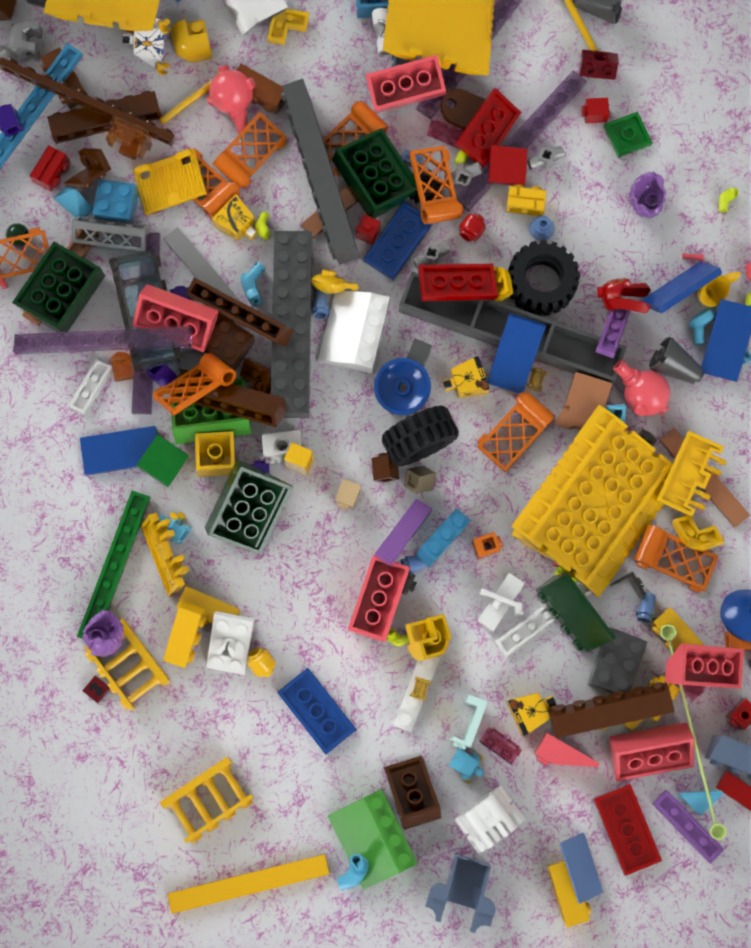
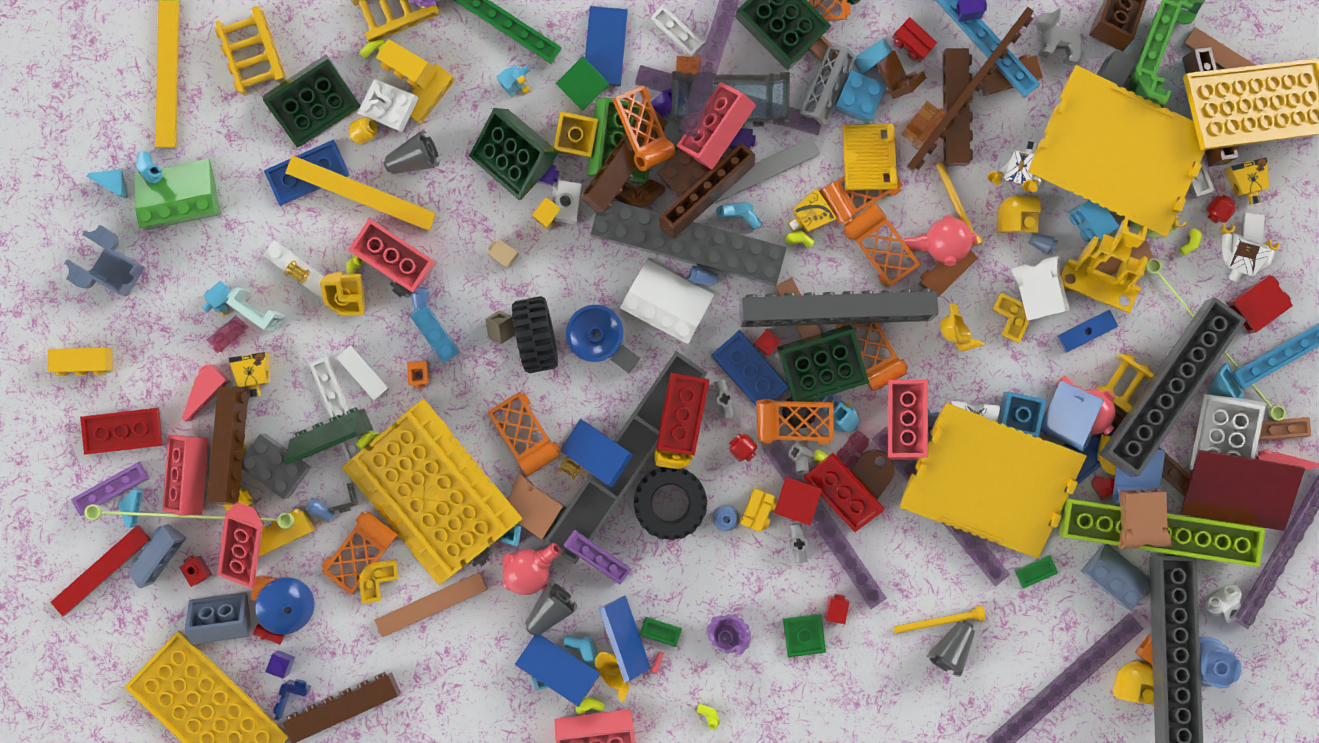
camera: 105 degrees right, 10 degrees up
(157, 539) = (505, 60): yellow hinge -> none
(174, 677) = (371, 47): none -> neon yellow arm
(212, 13) = (1043, 243): none -> sand blue cone
(243, 724) = (311, 101): none -> dark green slope
(274, 606) = (413, 155): none -> dark grey cone
(314, 67) = (956, 331): none -> yellow hair
(323, 650) = (360, 193): none -> yellow tile
(330, 283) = (718, 291): yellow animal -> none
(375, 911) = (112, 180): none -> medium azure slope
(383, 469) = (517, 291): reddish brown brick -> none
(403, 532) = (450, 296): medium lavender tile -> none
(413, 792) = (207, 241): reddish brown slope -> none
(417, 141) = (845, 418): none -> medium azure piece
(467, 379) = (587, 400): yellow torso -> none
(487, 817) = (163, 302): white piece -> none
(499, 600) = (362, 370): white piece -> none
(581, 868) = (97, 377): medium blue piece -> none
(598, 64) = (885, 626): dark red brick -> none
(615, 288) = (639, 569): red piece -> none
(663, 260) = (660, 631): none -> green tile
(689, 472) = (436, 588): yellow hinge -> none

